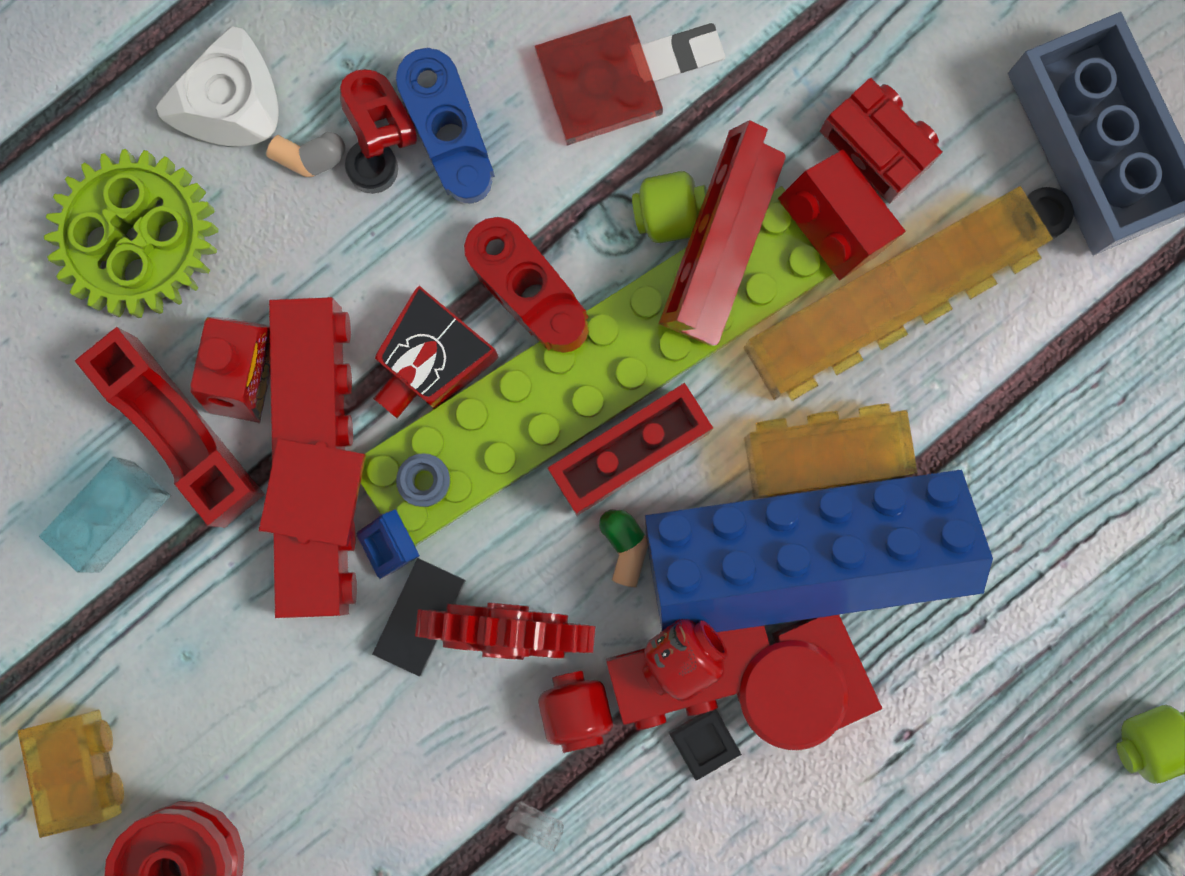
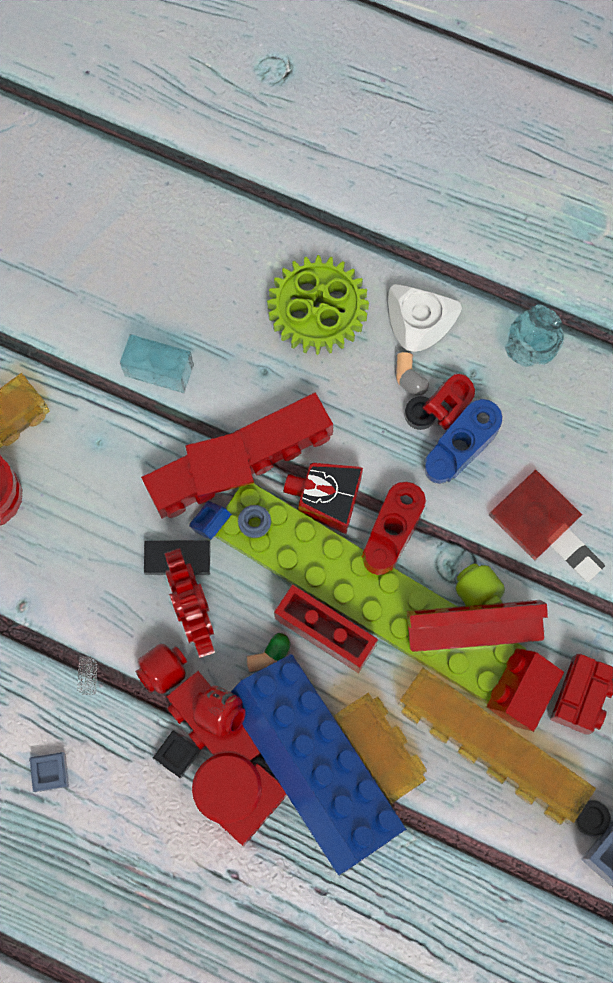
camera: 65 degrees right, 10 degrees down
(149, 398) = (232, 354): red arch -> none
(232, 368) = (268, 390): red torso -> none

